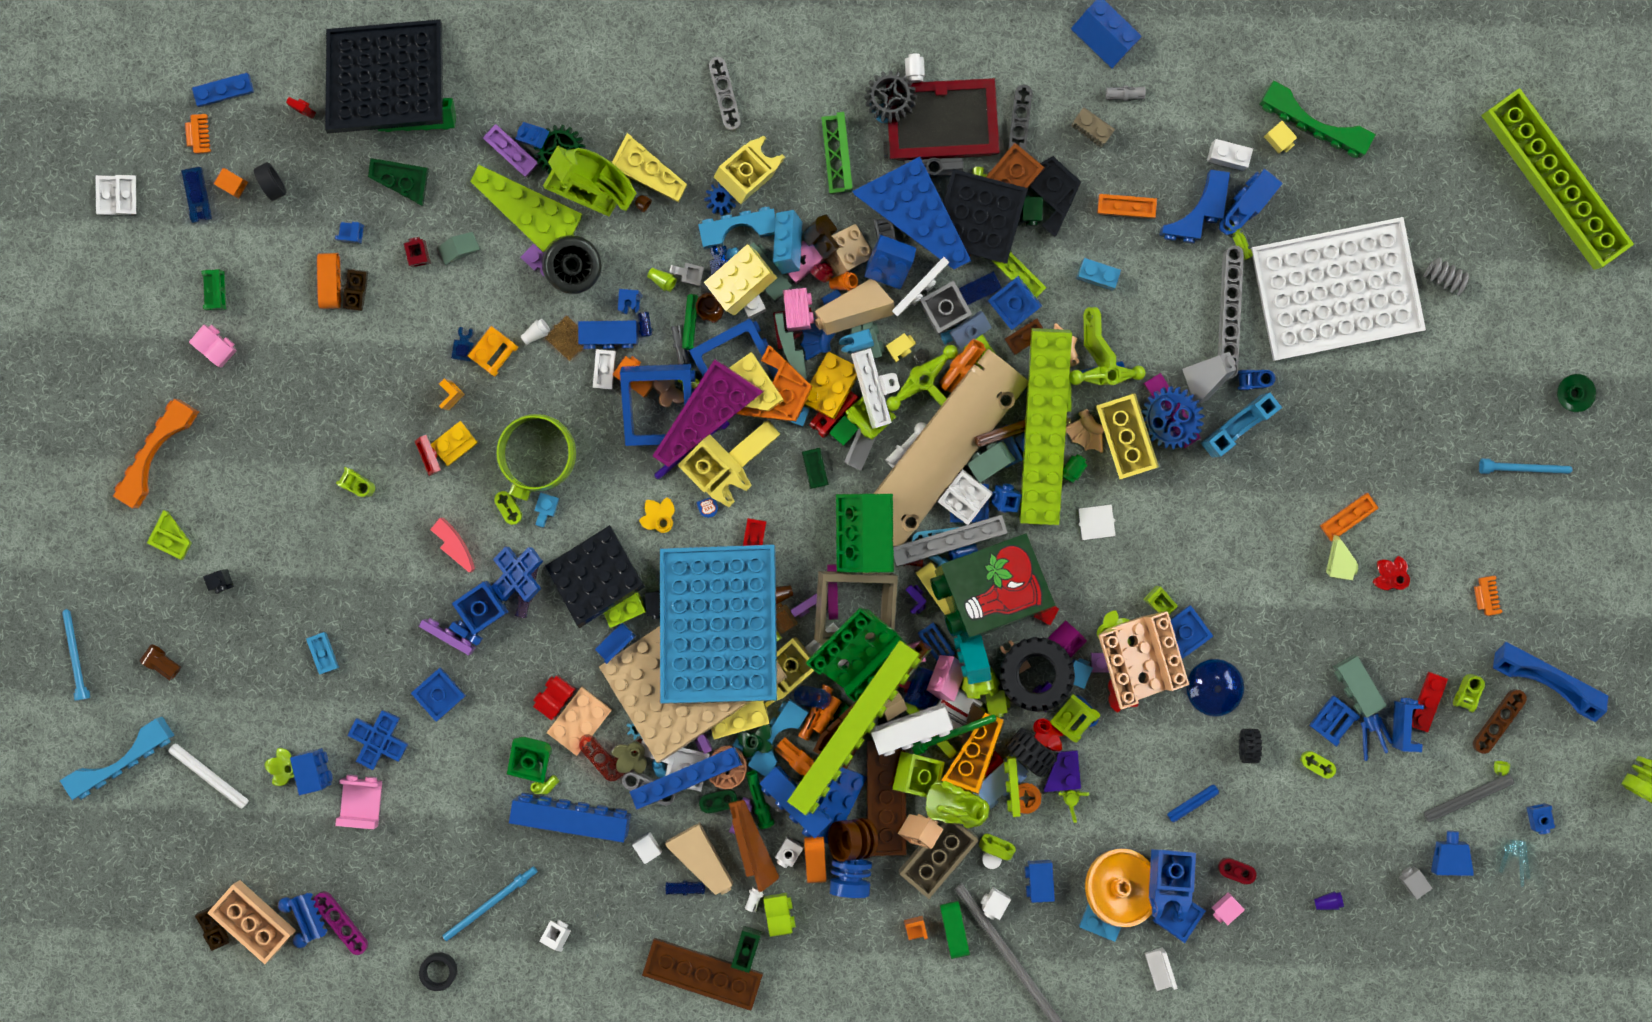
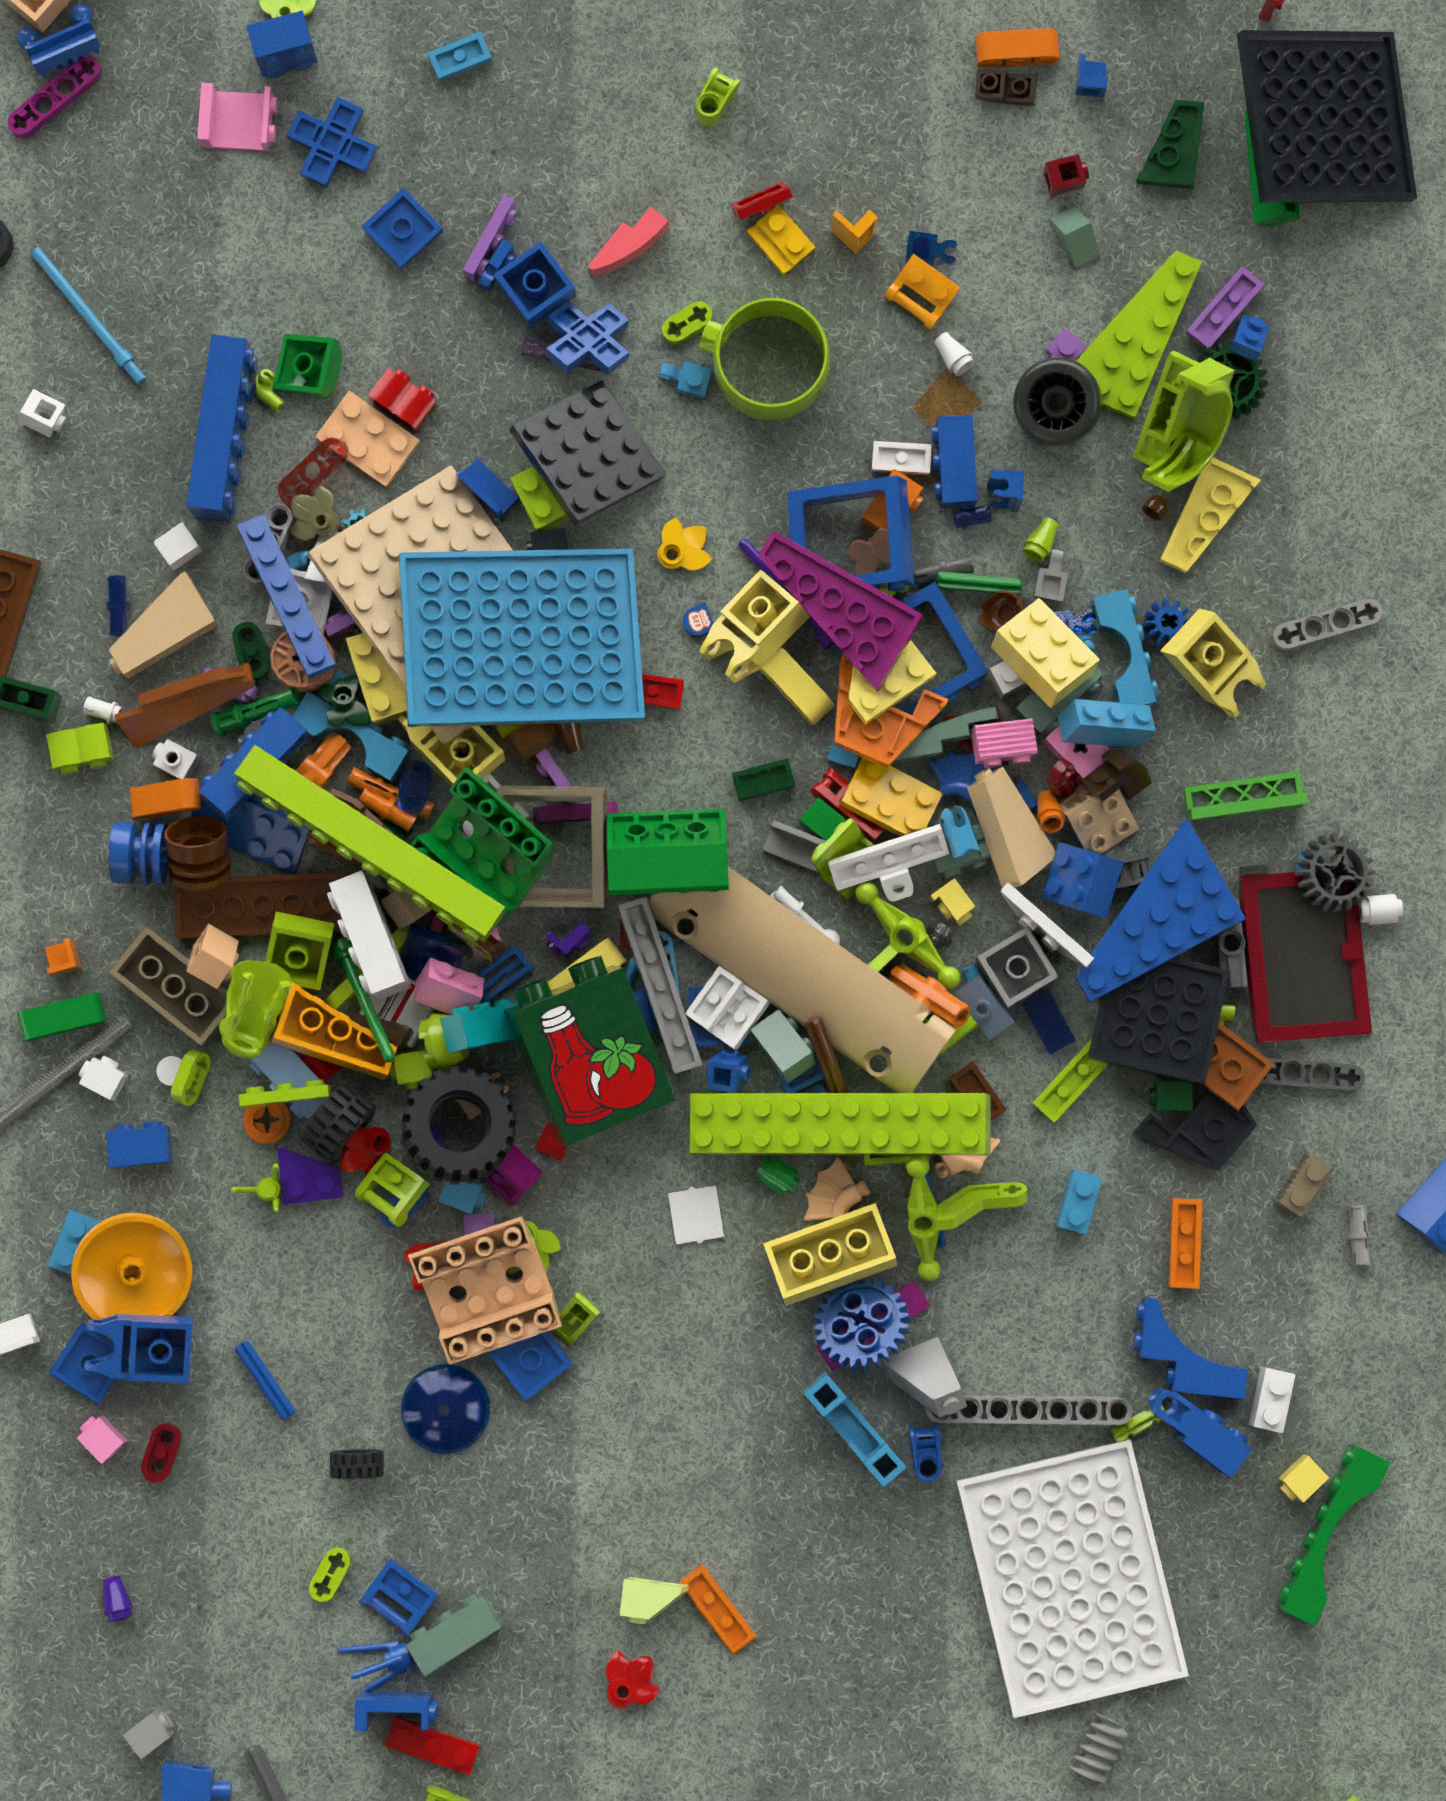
camera: 85 degrees right, 5 degrees down
(1014, 303) = (1028, 1074): blue plate -> none

